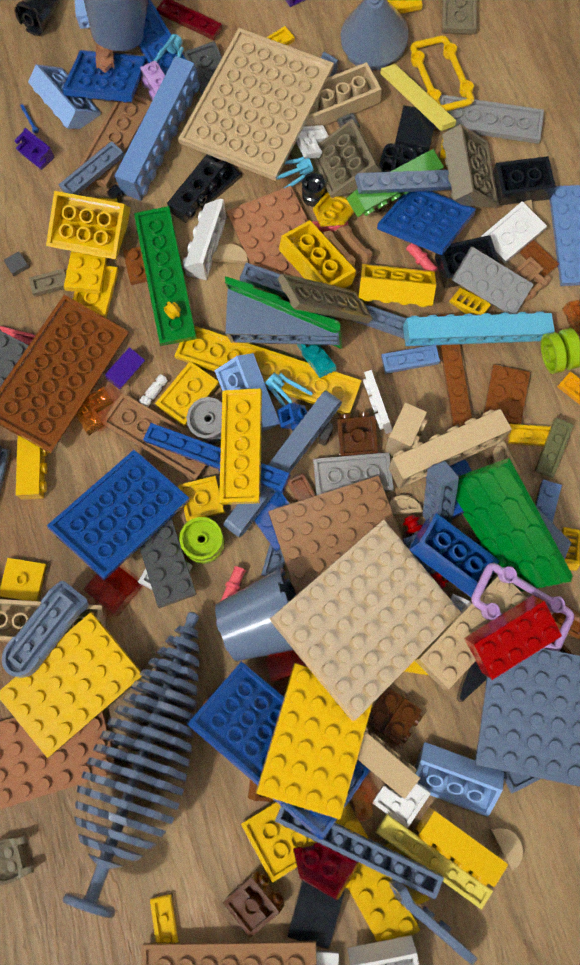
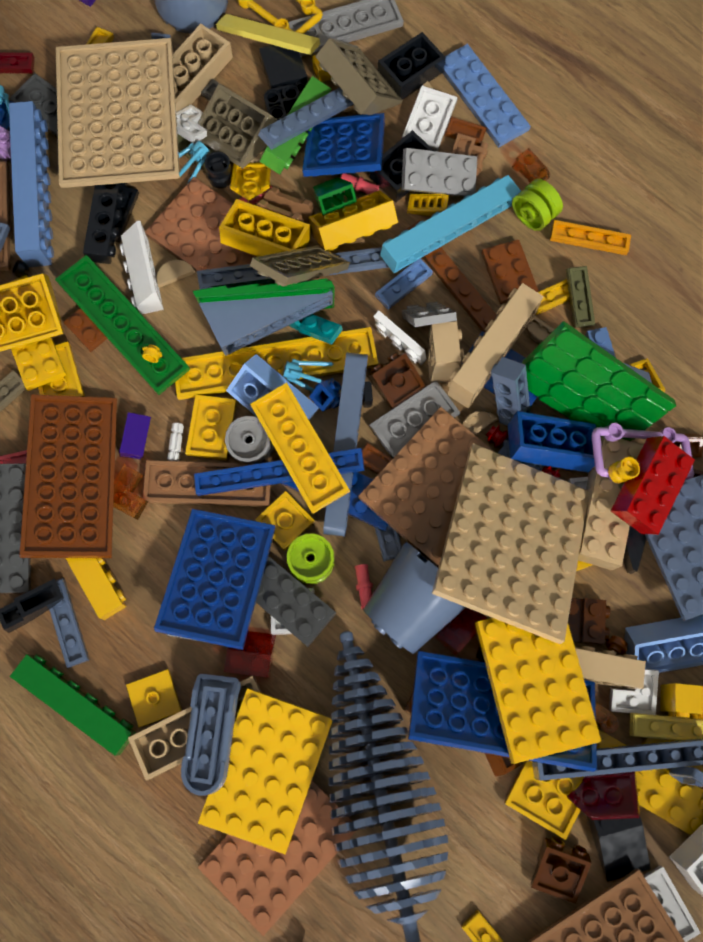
camera: 35 degrees left, 0 degrees up
(392, 256) = (331, 195): none -> green torso
(409, 753) = (617, 645): none -> dark orange plate
(410, 395) = (431, 314): none -> light grey plate
(497, 607) = (624, 470): none -> yellow wheel

